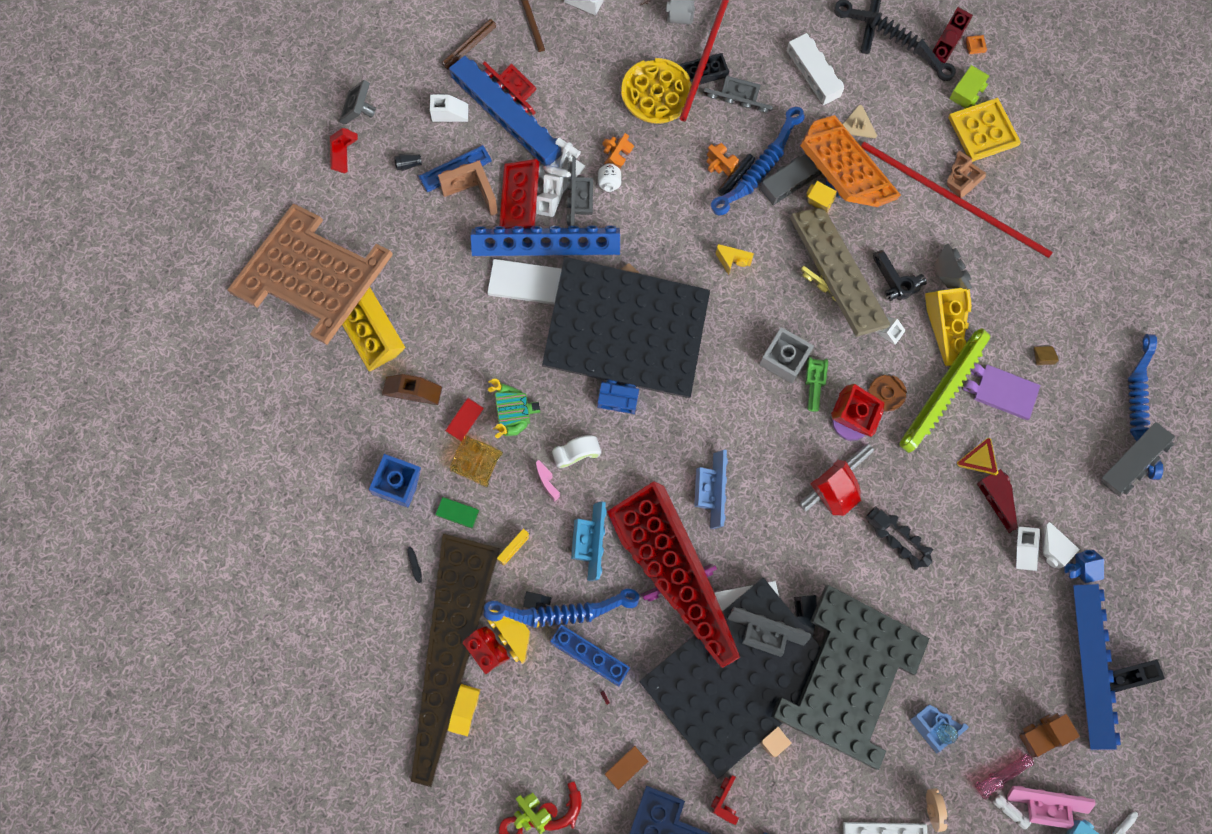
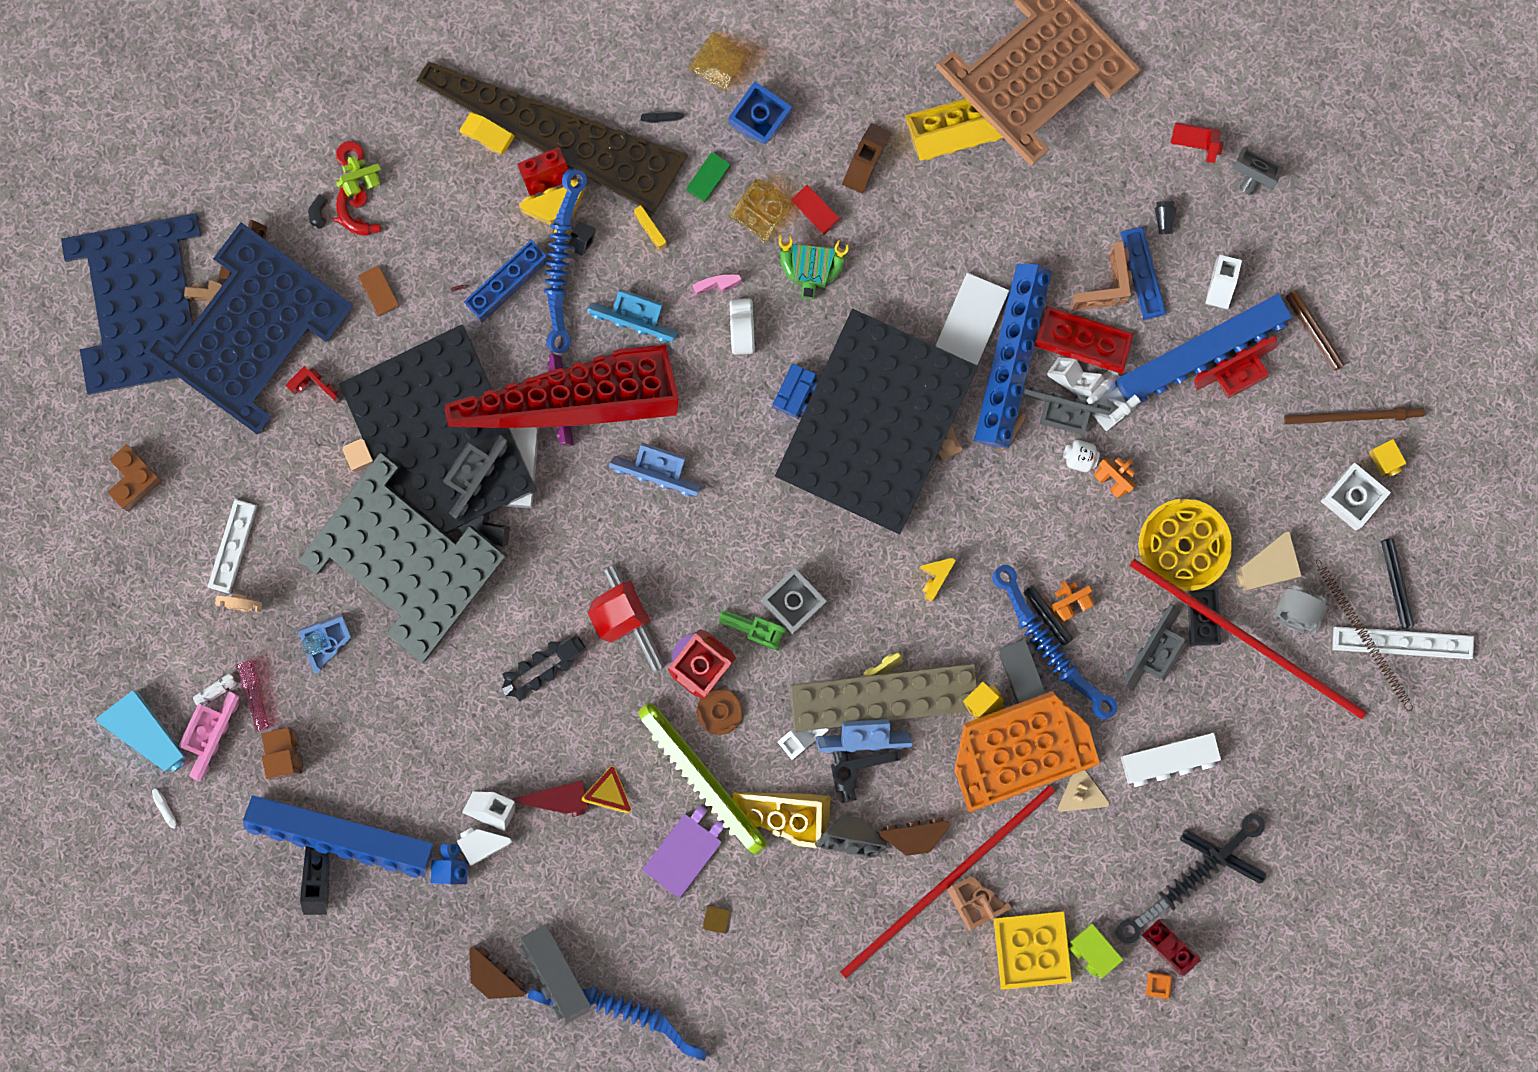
camera: 110 degrees right, 10 degrees up
(356, 528) = (718, 61): none -> clear yellow slope
(653, 34) = (1270, 566): none -> tan slope
(875, 278) = (863, 736): none -> medium blue bracket
(932, 225) = (915, 837): none -> reddish brown slope
(1156, 510) = (491, 977): none -> reddish brown slope

